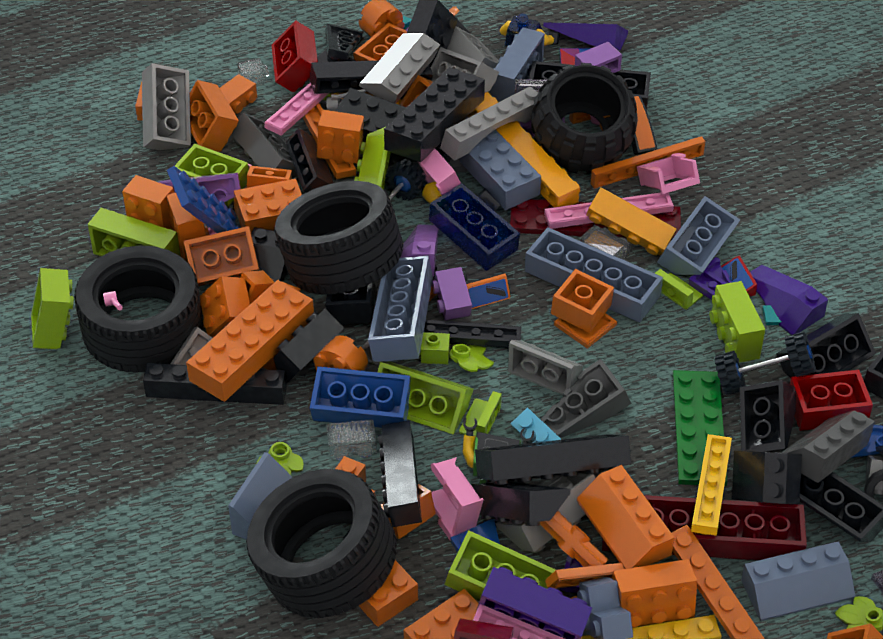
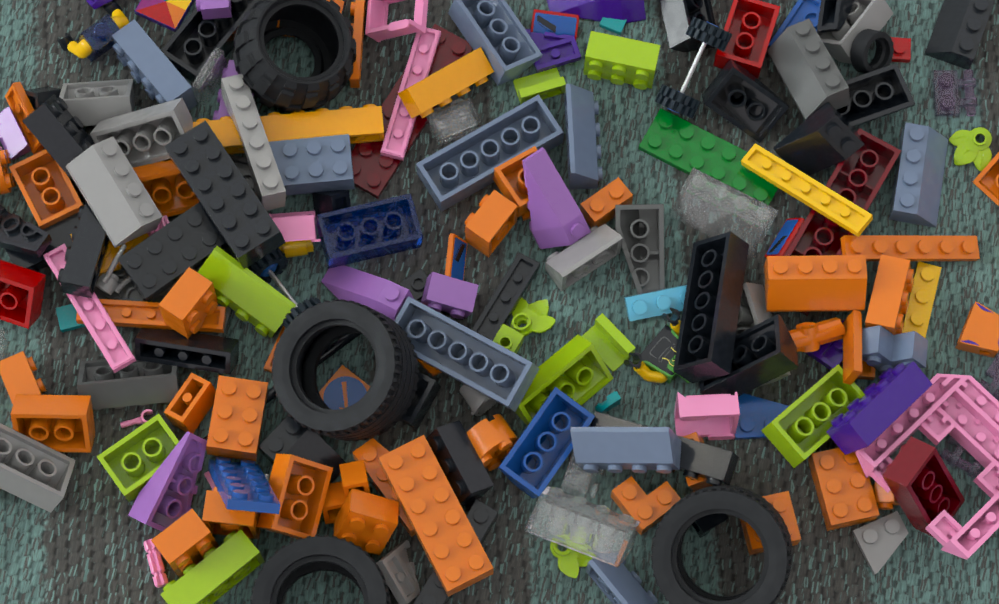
camera: 65 degrees left, 25 degrees up
(297, 441) = (583, 526): none -> clear slope
(379, 434) = (626, 449): none -> sand blue slope
(427, 436) = (612, 401): none -> teal tile
(530, 294) = (490, 223): none -> orange brick
(569, 319) = (553, 211): none -> medium lavender wedge
(615, 361) = (601, 206): none -> orange brick
(648, 322) = (581, 138): none -> sand blue slope
(654, 448) = (719, 208): none -> clear slope

